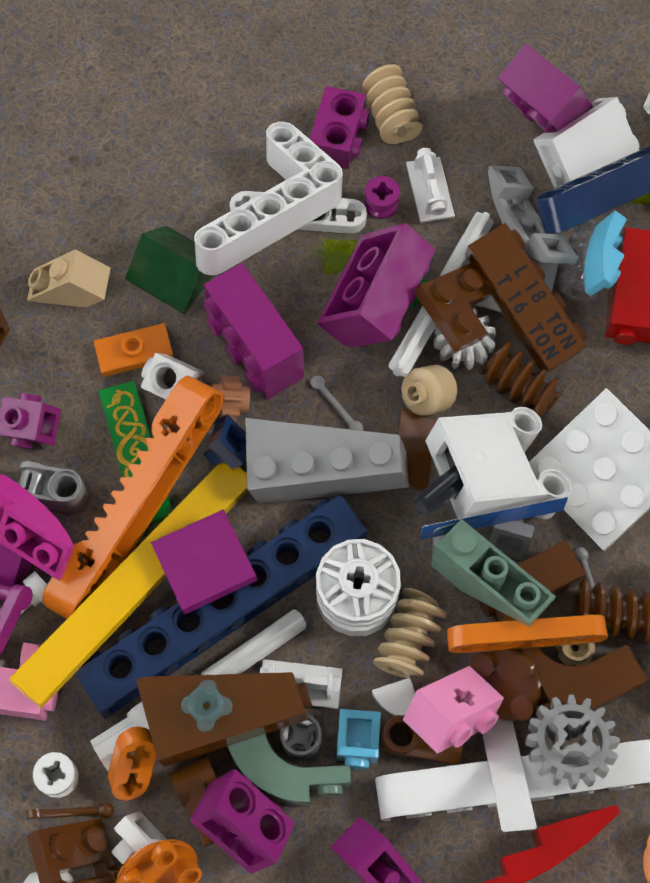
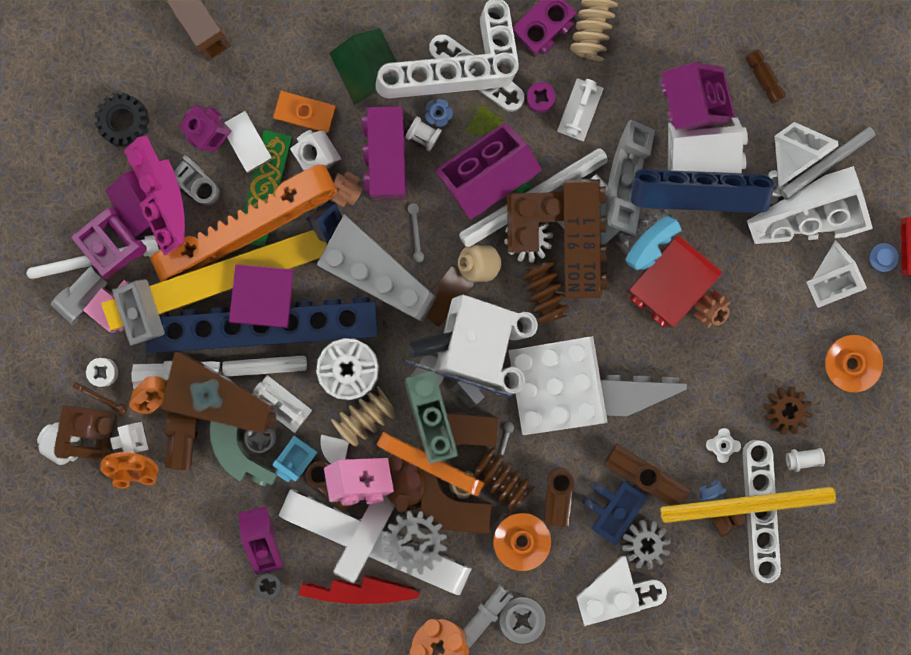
camera: 35 degrees right, 20 degrees up
(62, 662) = (138, 312): none -> light grey slope
(69, 281) = (287, 36): tan slope -> none
(88, 414) = (247, 142): none -> white slope
(243, 821) = (190, 472): magenta brick -> none
(282, 279) = (438, 120): none -> medium blue plate
(283, 297) = (423, 134): none -> white bush
(592, 62) = (765, 76): none -> reddish brown axle

